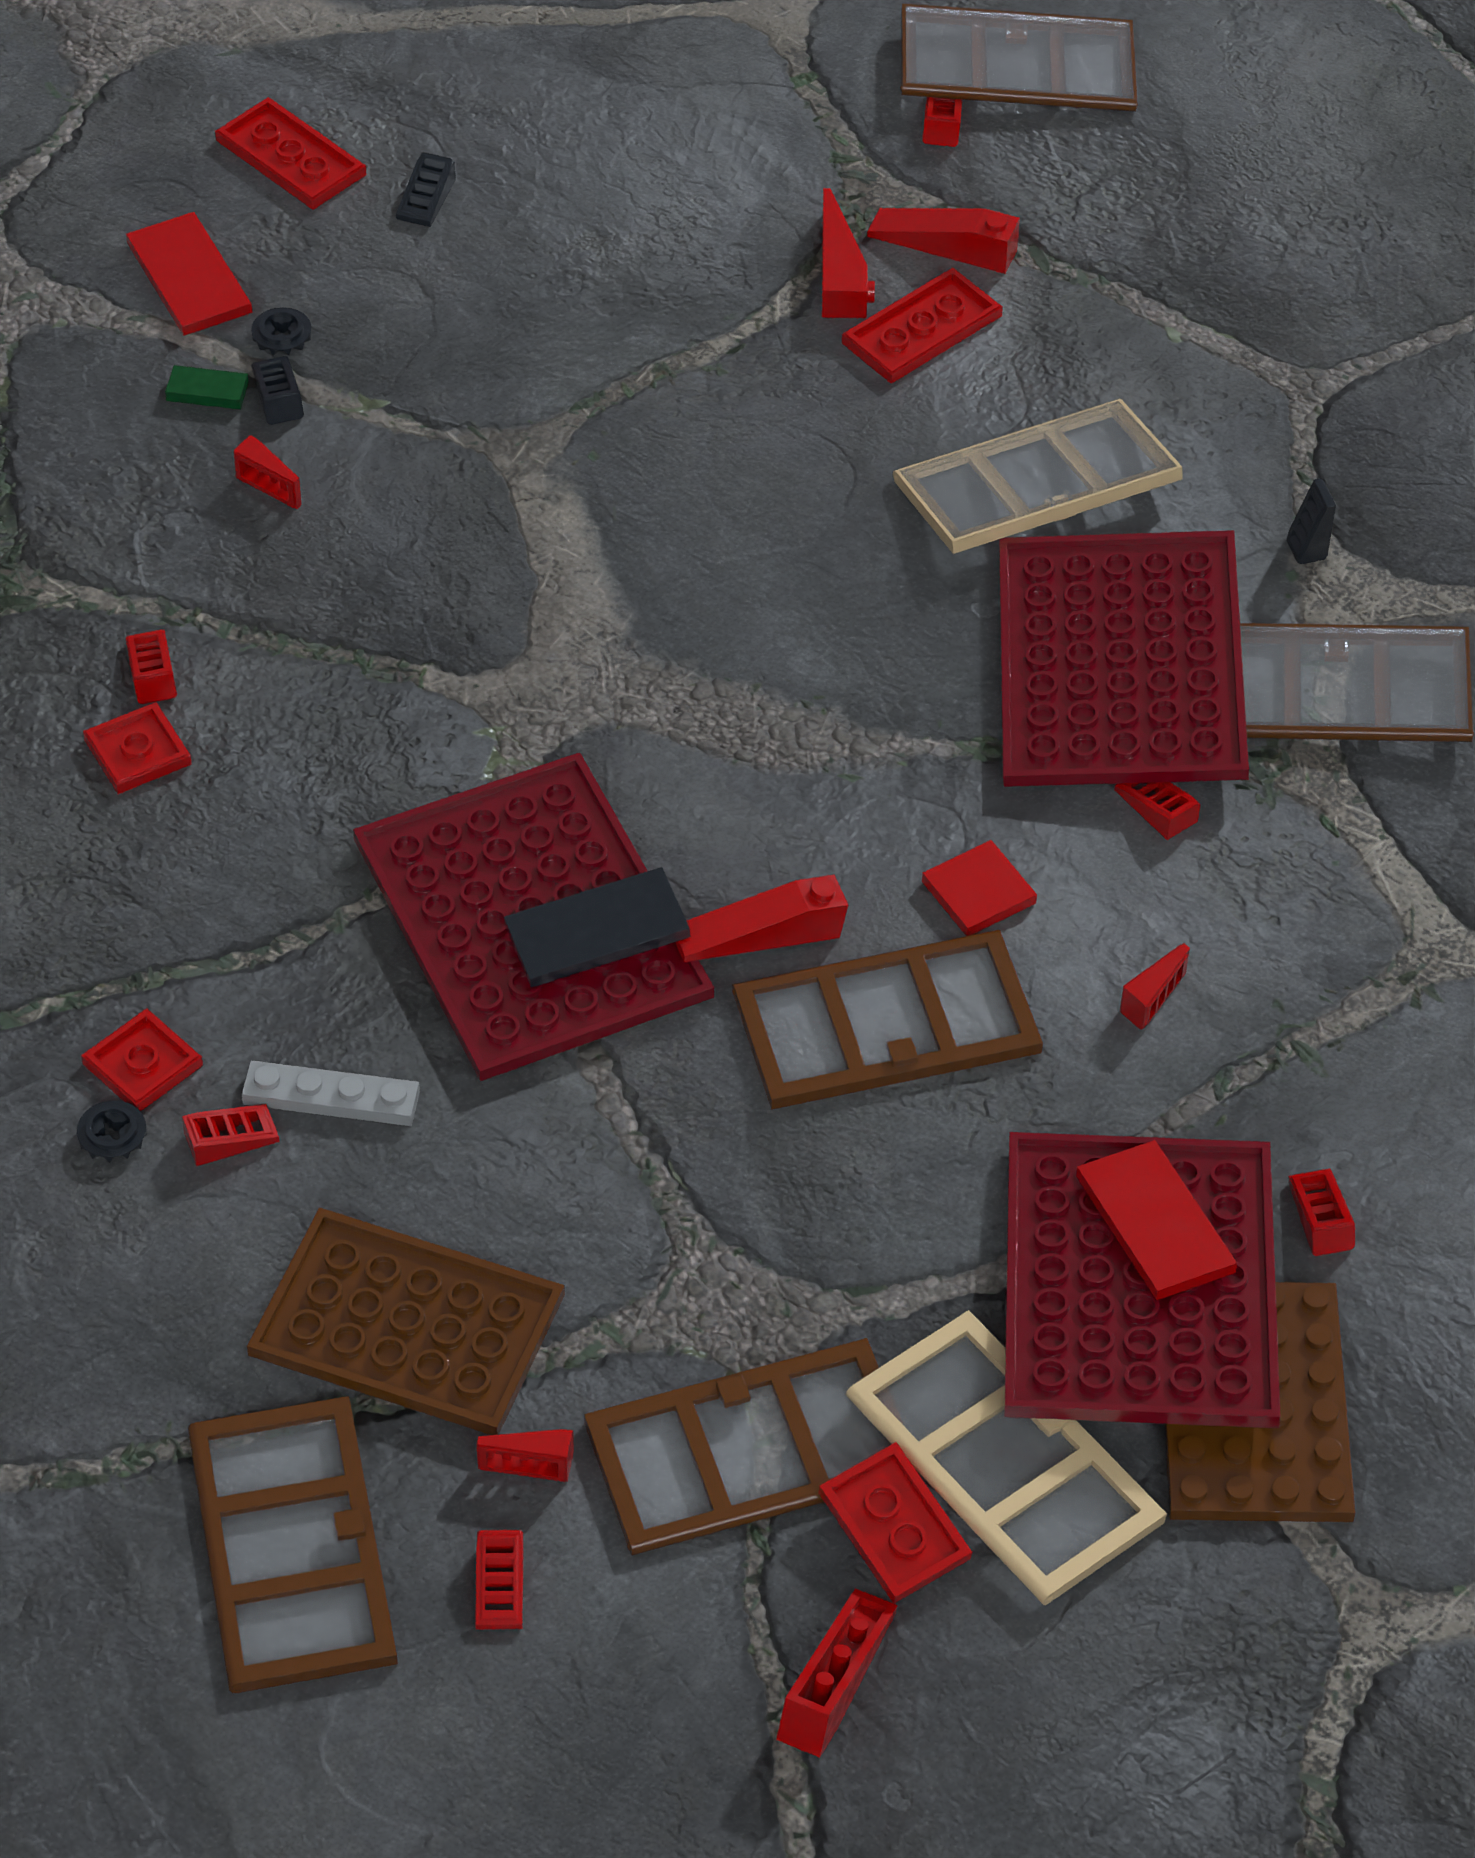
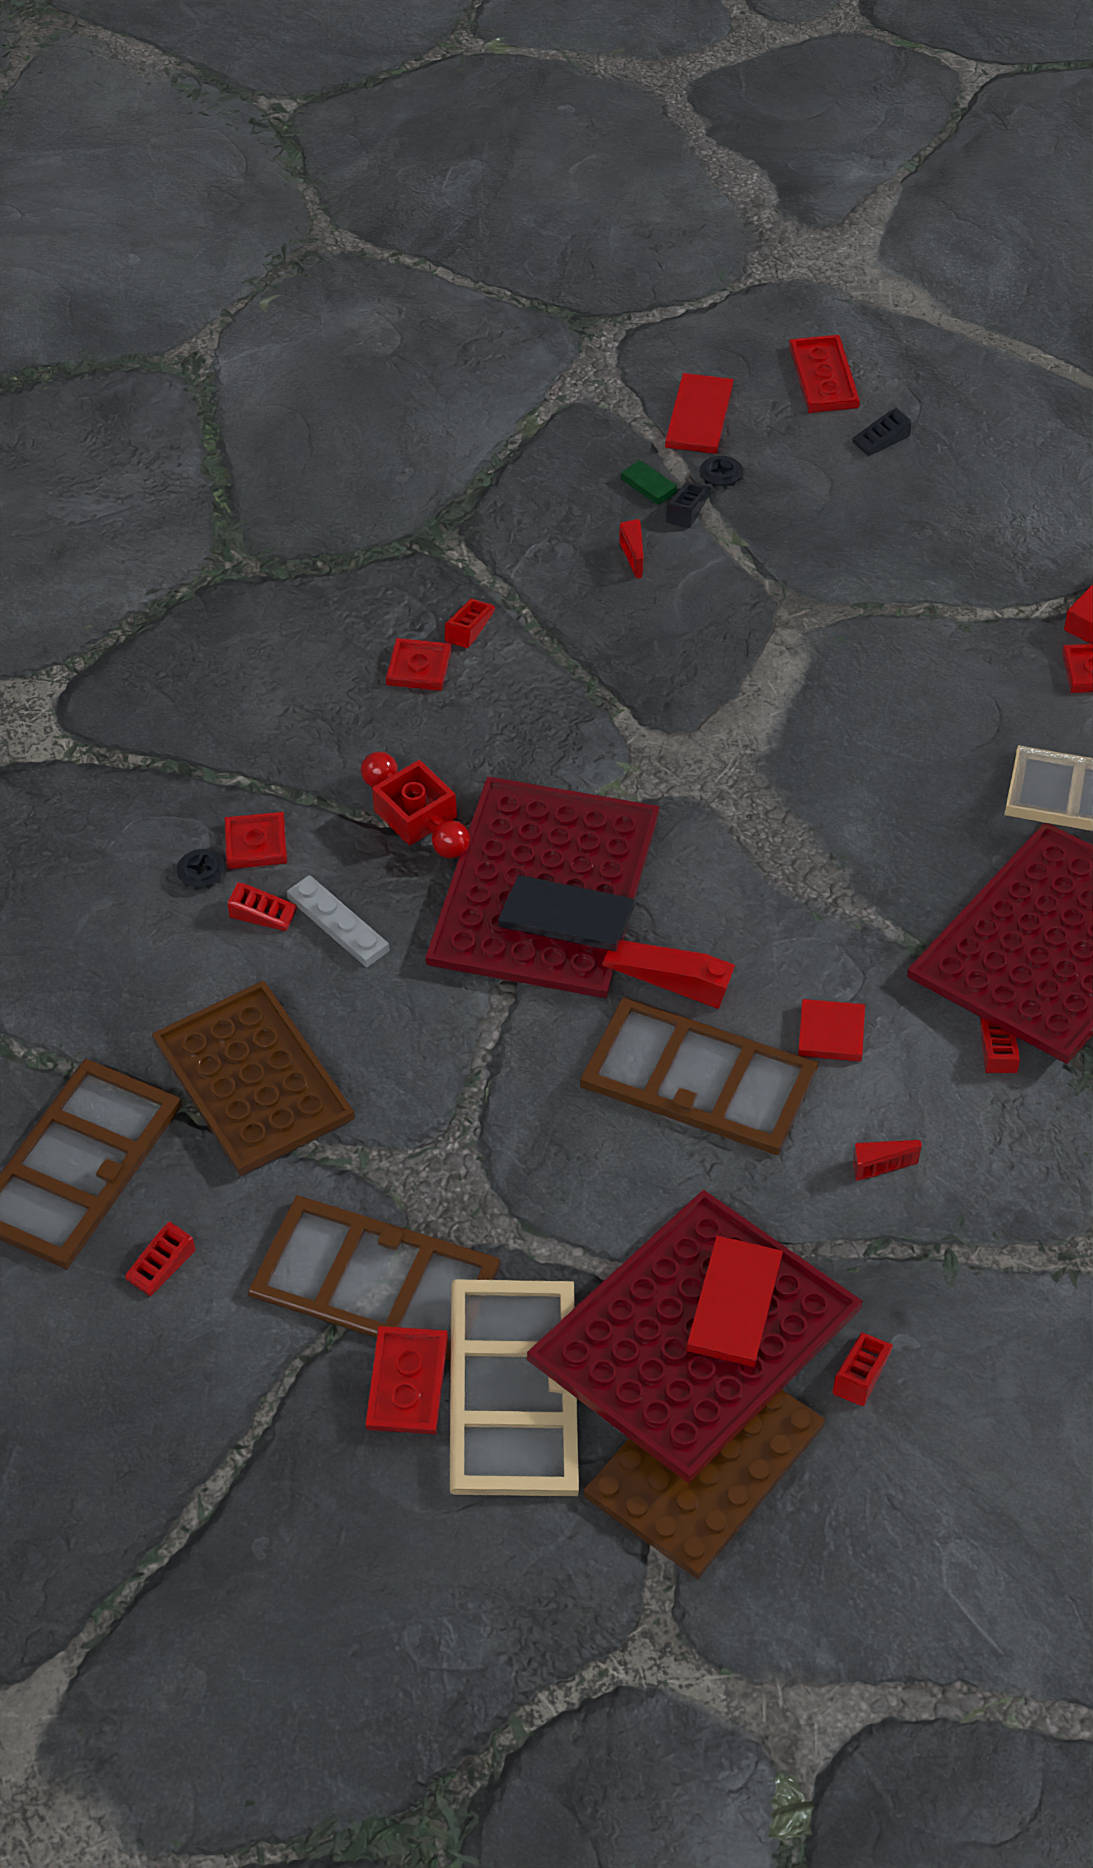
camera: 40 degrees right, 0 degrees up
(302, 907) = (415, 803): none -> red brick
(528, 1454) = (245, 1198): red slope -> none
(834, 1673) = (281, 1447): red slope -> none

